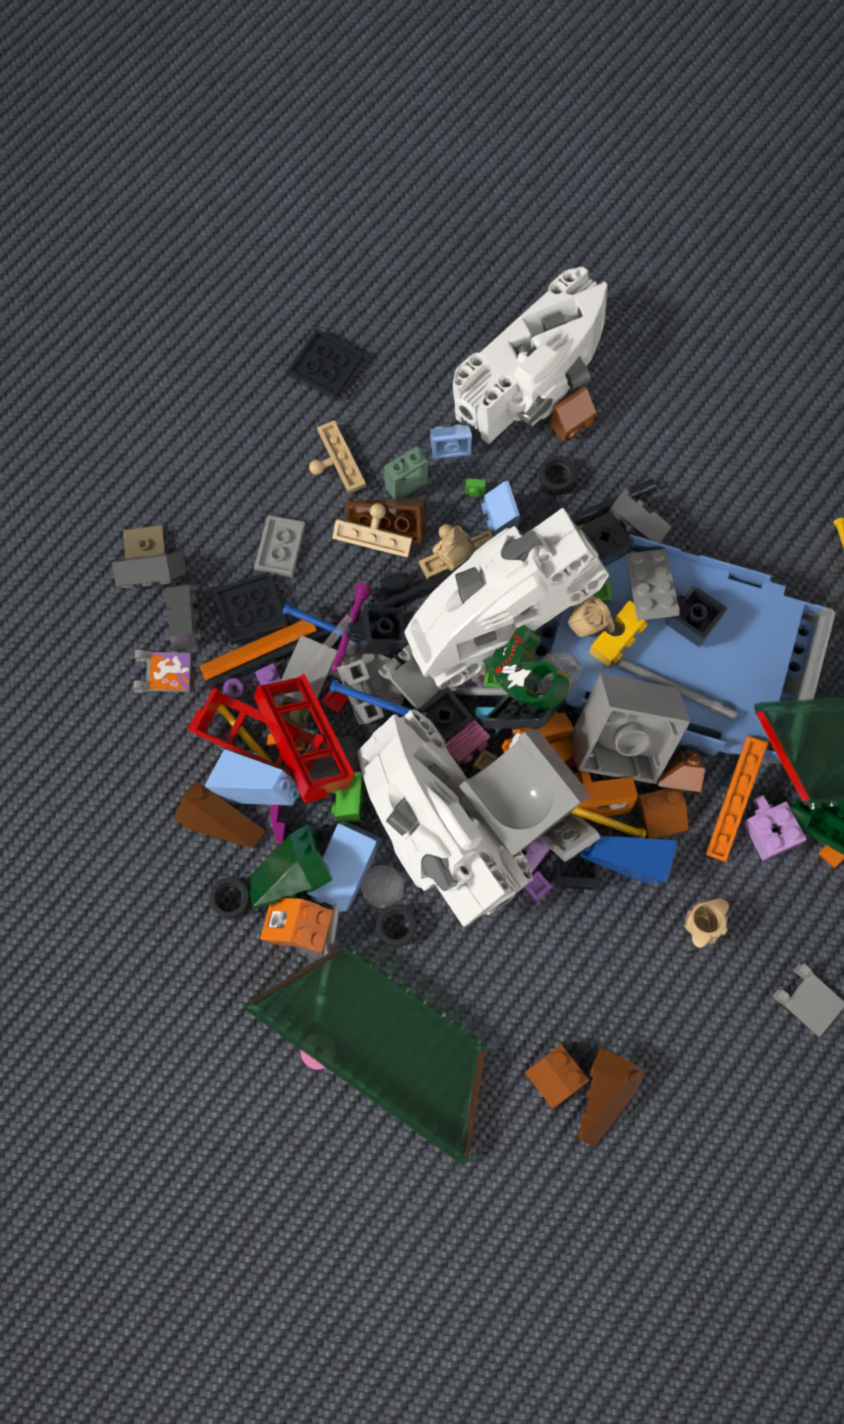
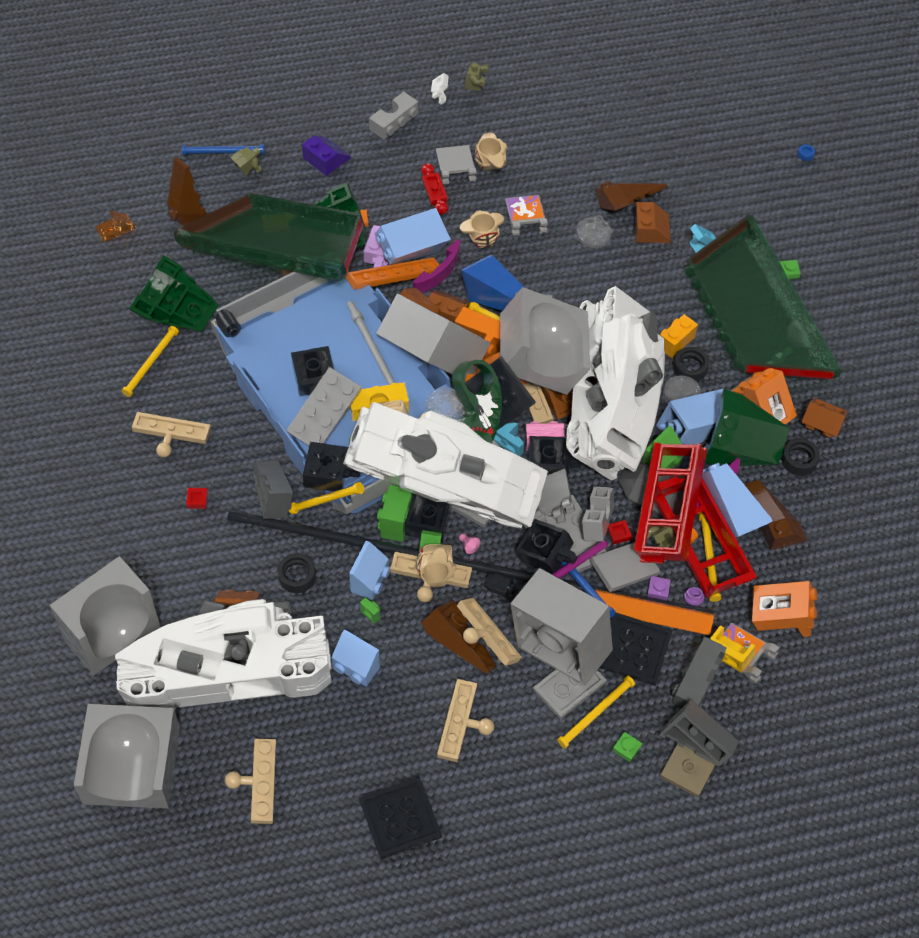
camera: 145 degrees left, 15 degrees down
(142, 727) = (791, 606): none -> orange brick
(170, 657) = (735, 655): none -> yellow panel
(202, 530) = (627, 747): none -> bright green plate
(234, 962) = (824, 417): none -> dark orange slope
(251, 499) = (564, 741): none -> yellow bar
(307, 552) = (562, 626): none -> light grey piece
(327, 645) = (601, 562): clear bar -> none
(335, 686) = (617, 522): blue bar -> none
(382, 1131) = (791, 268): none -> bright green plate
(413, 470) = (429, 654): sand green window -> none
(430, 946) = (678, 335): none -> light orange brick
(442, 322) = (261, 781): none -> tan plate
(473, 1330) = (806, 152): none -> blue tile
(491, 1097) = (701, 237): none -> medium azure slope
(539, 257) = (127, 756): none -> light grey piece
(606, 1021) = (594, 232): none -> clear tile
(650, 320) = (105, 614): none -> light grey piece
(690, 476) = (197, 498): none -> red plate
(690, 991) = (525, 211): none -> flag
(709, 877) = (428, 281): none -> magenta slope
(754, 842) = (413, 237): none -> light blue slope
(769, 516) = (169, 429): none -> tan plate
(782, 1029) = (490, 152): none -> tan piece
(798, 946) = (434, 188): none -> red plate
(813, 610) = (227, 323): none -> black brick

